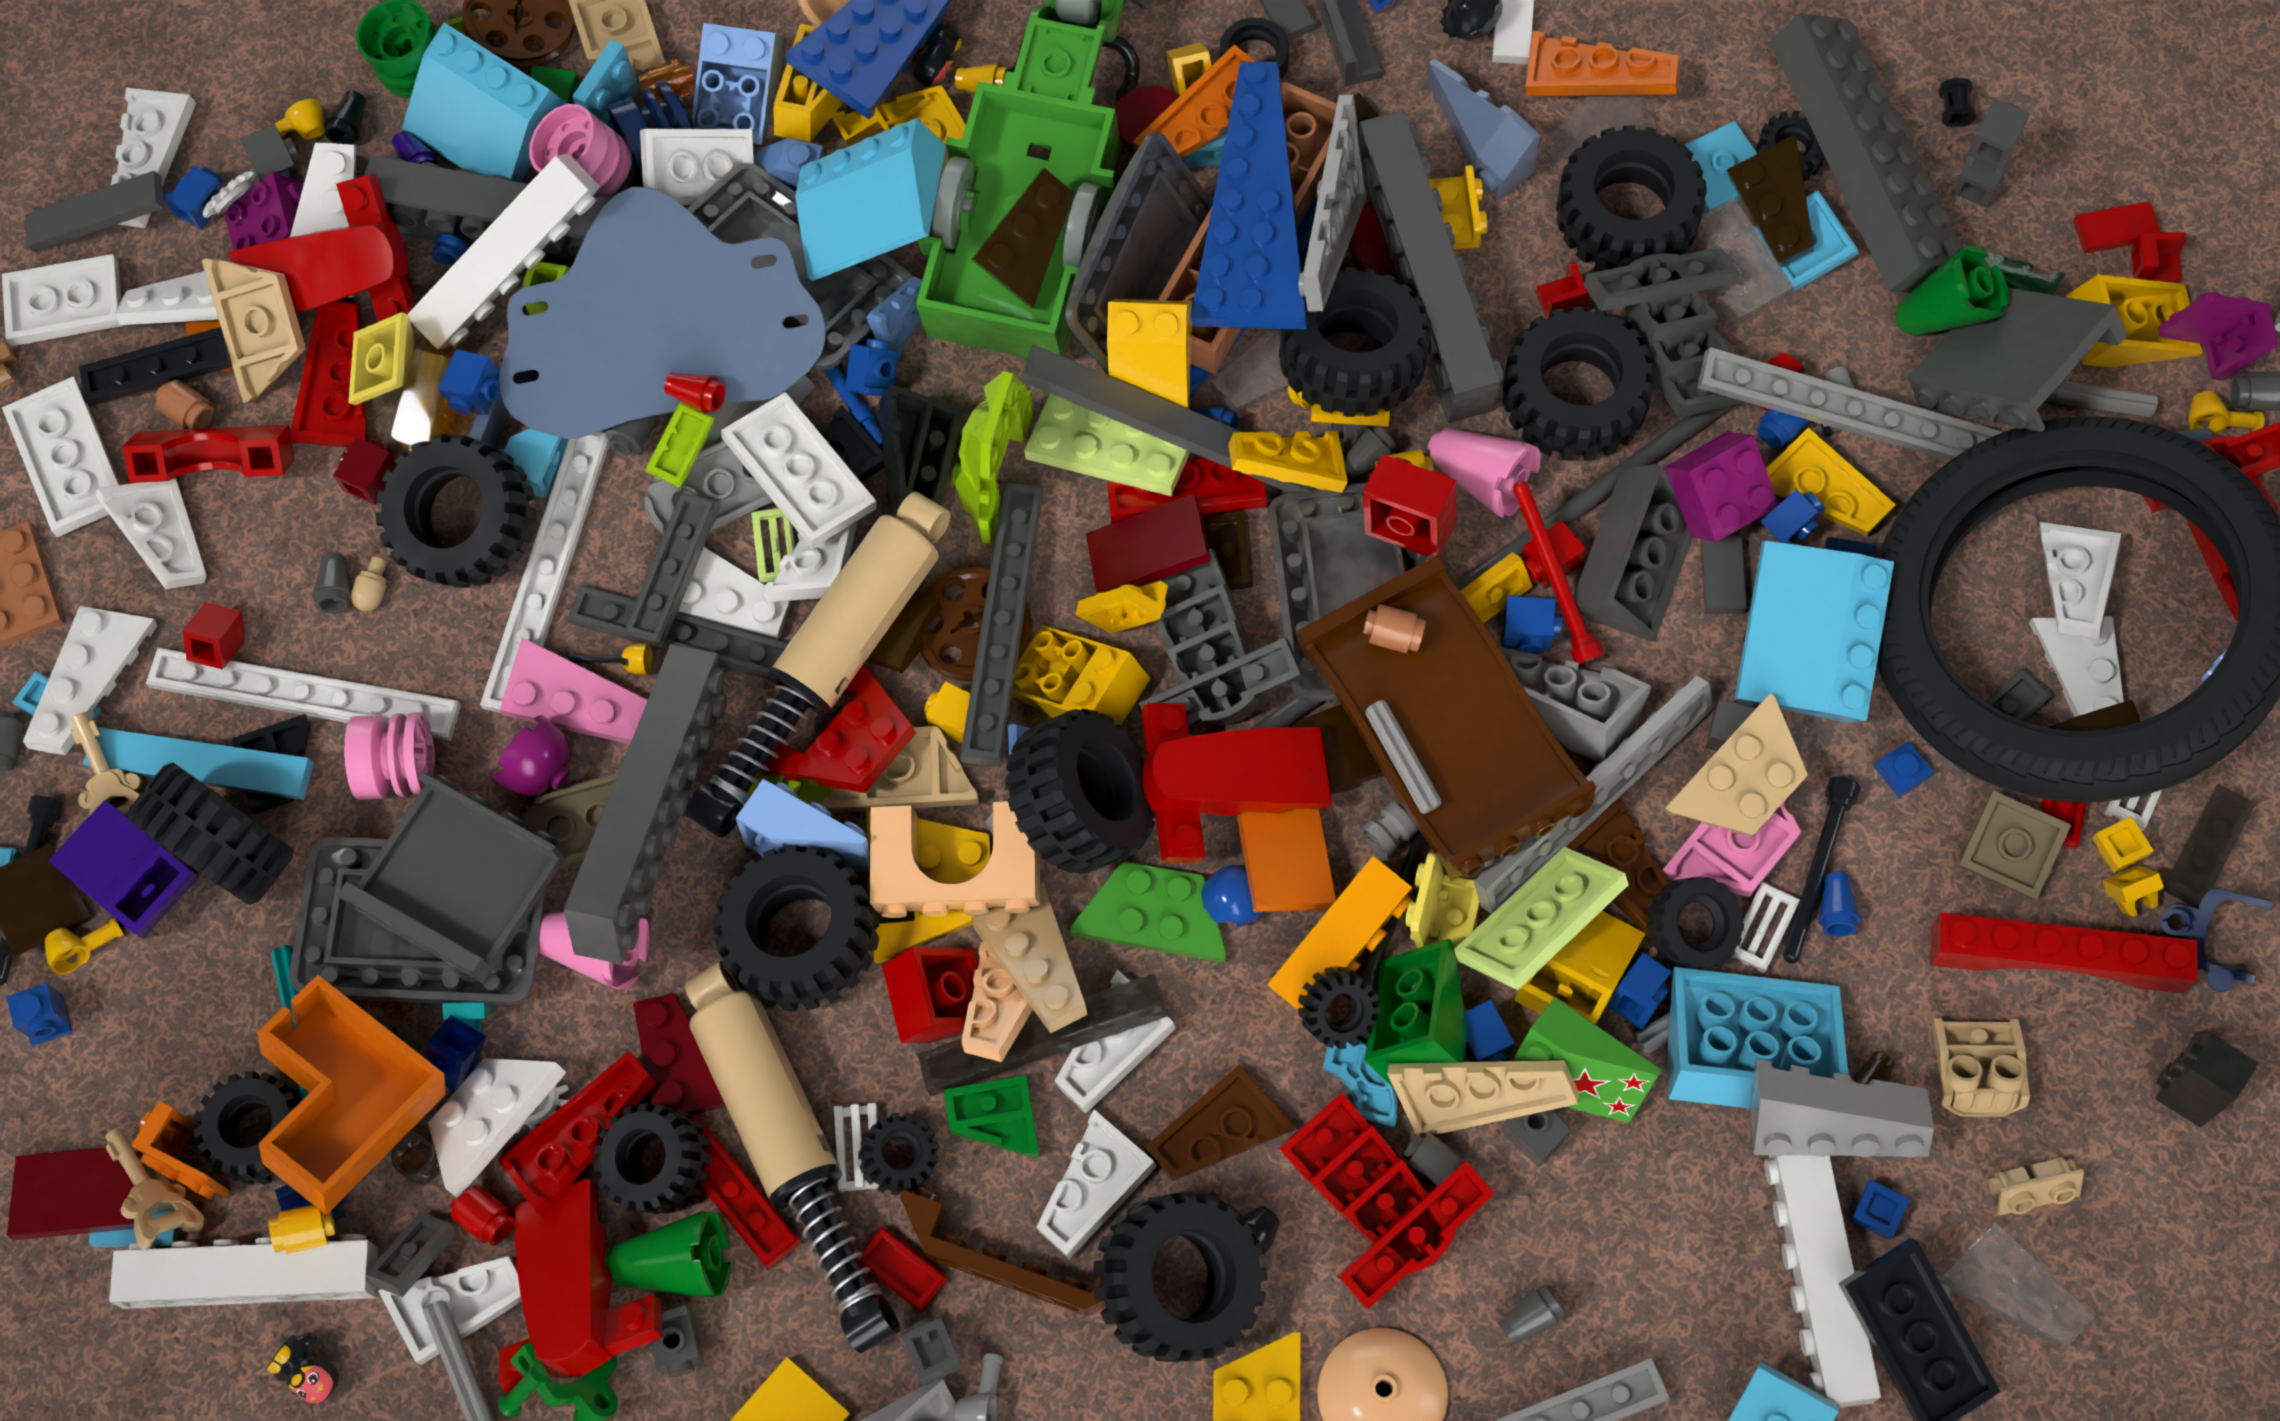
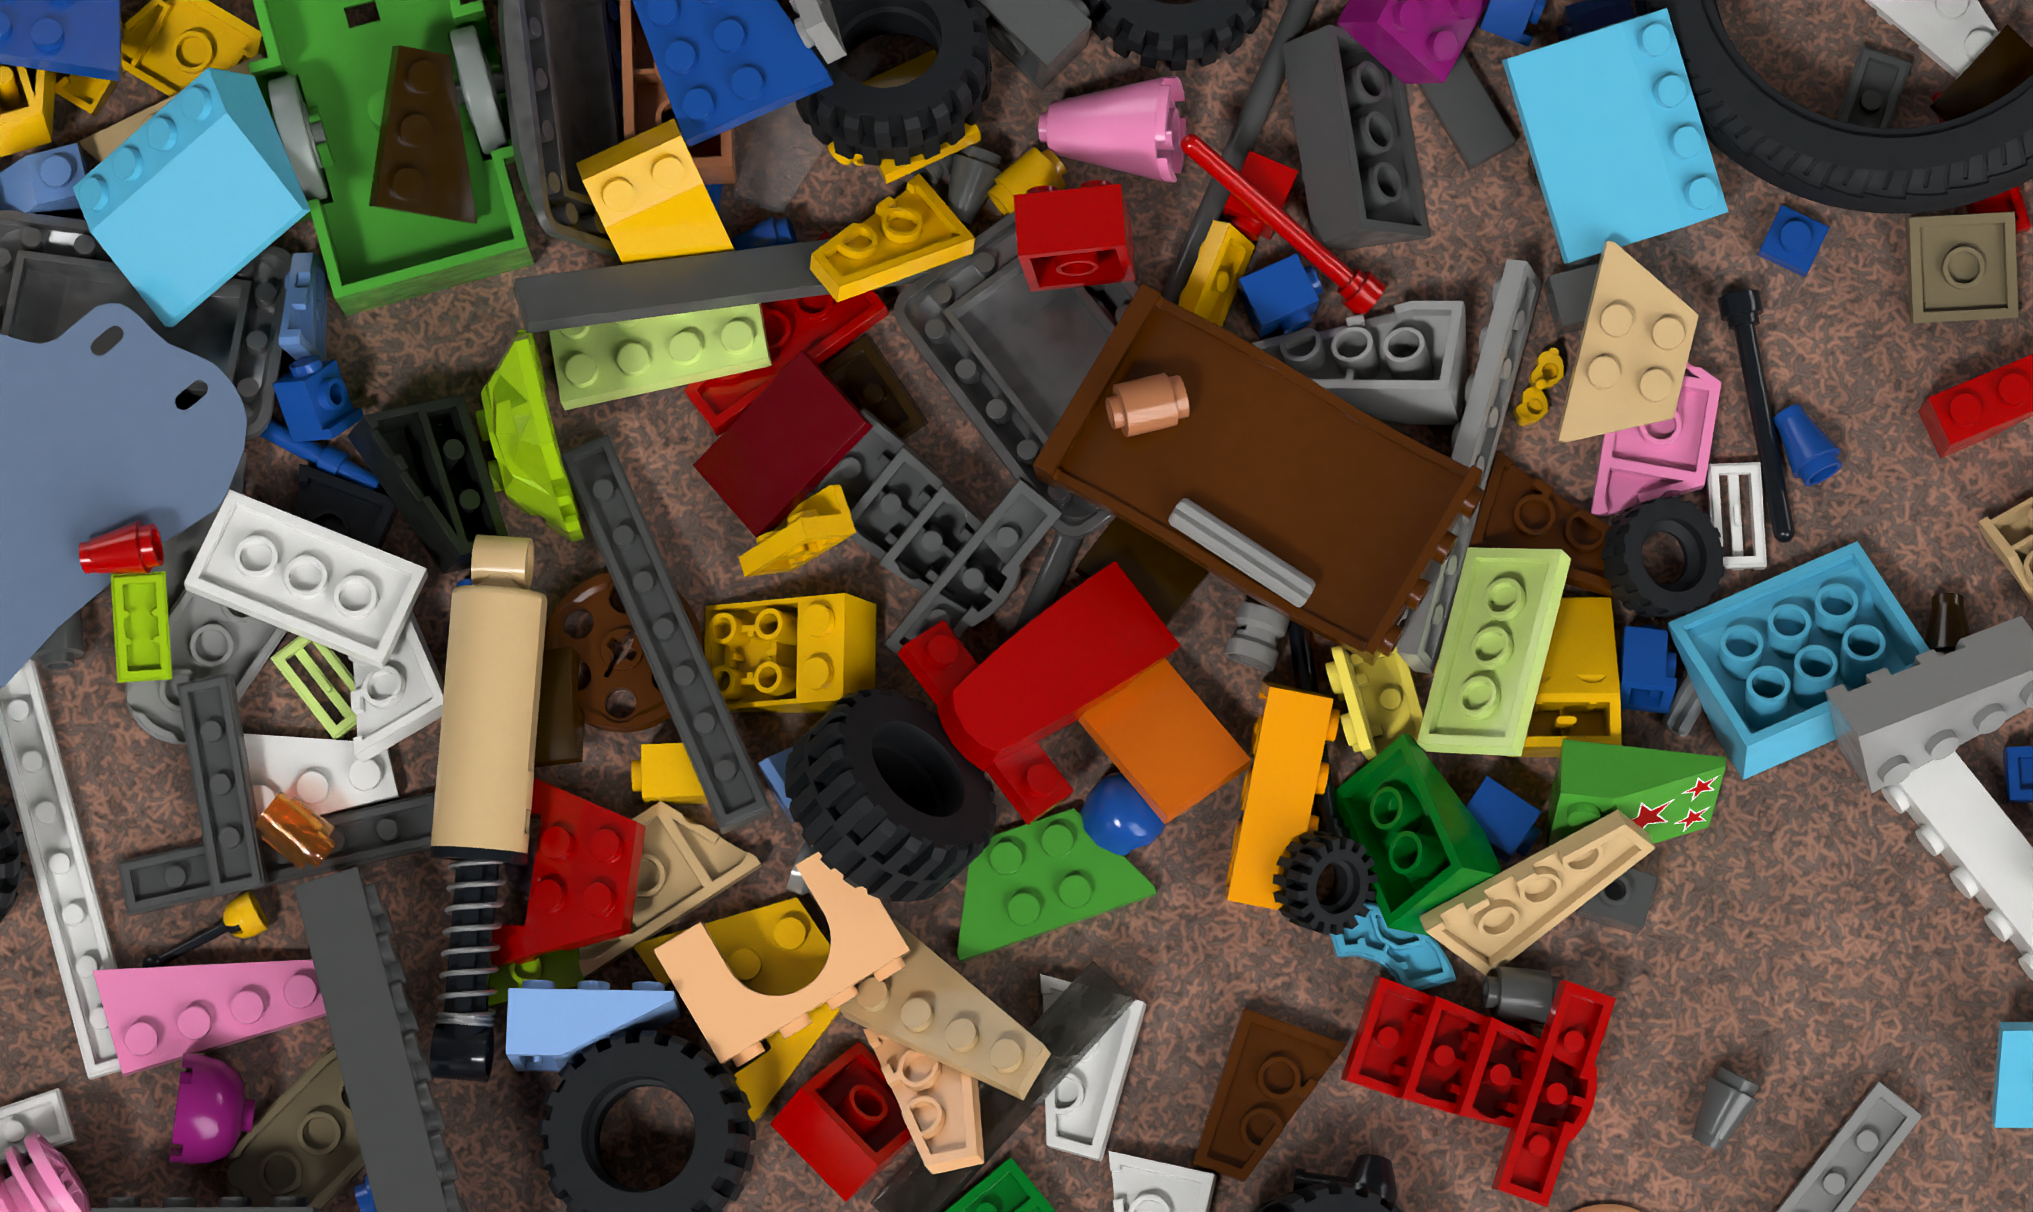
camera: 35 degrees left, 10 degrees up
(697, 619) = (296, 831): none -> clear orange brick
(1681, 768) = (1533, 401): none -> yellow piece

